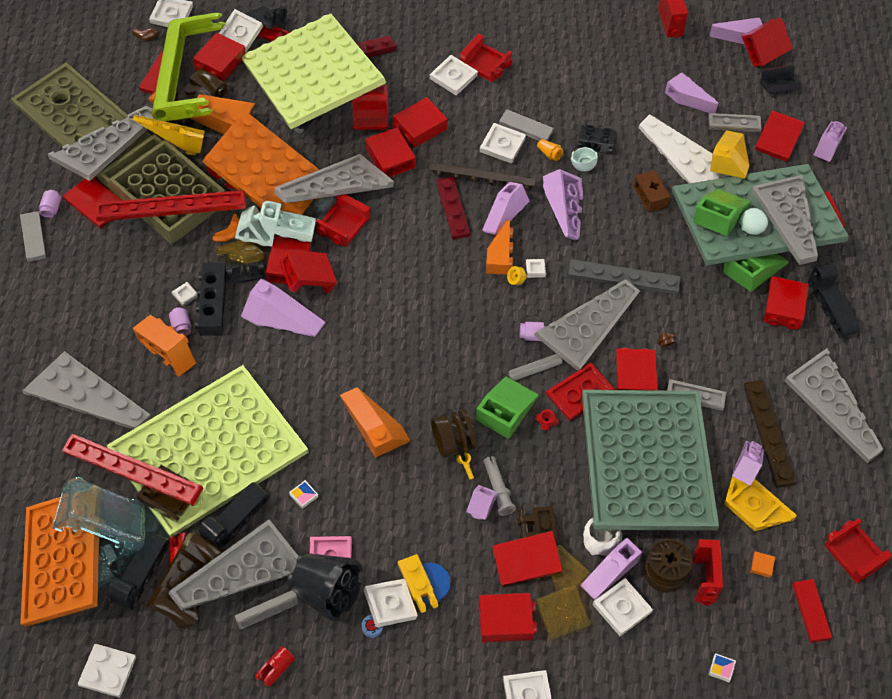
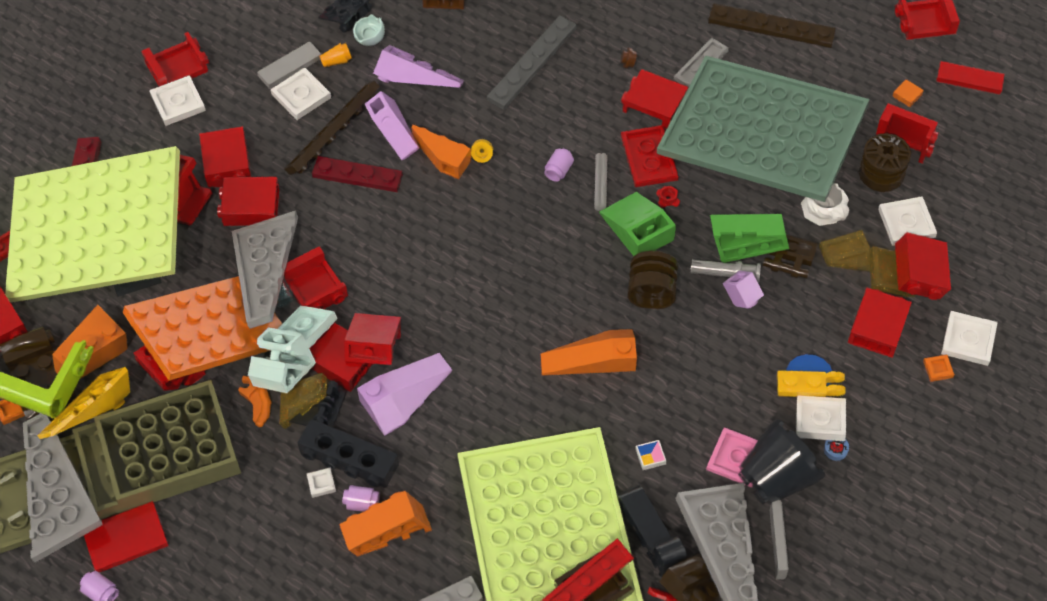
camera: 60 degrees left, 0 degrees up
(170, 205) = (200, 446): red tile -> none
(275, 666) = (846, 551): red hinge -> none
(466, 464) = (682, 287): yellow hand -> none
(488, 681) = (938, 368): none -> orange tile
(527, 559) = (823, 276): red tile -> none
(531, 484) = (748, 235): none -> bright green wedge
(535, 268) = (478, 130): white tile -> none
(576, 632) = (922, 266): none -> red brick
(584, 328) = (580, 119): light grey wing -> none
(612, 569) = (866, 209): lavender slope -> none
(722, 667) = (999, 170): tile -> none
(749, 462) = (806, 51): lavender slope -> none
(756, 505) = (840, 69): yellow wing -> none

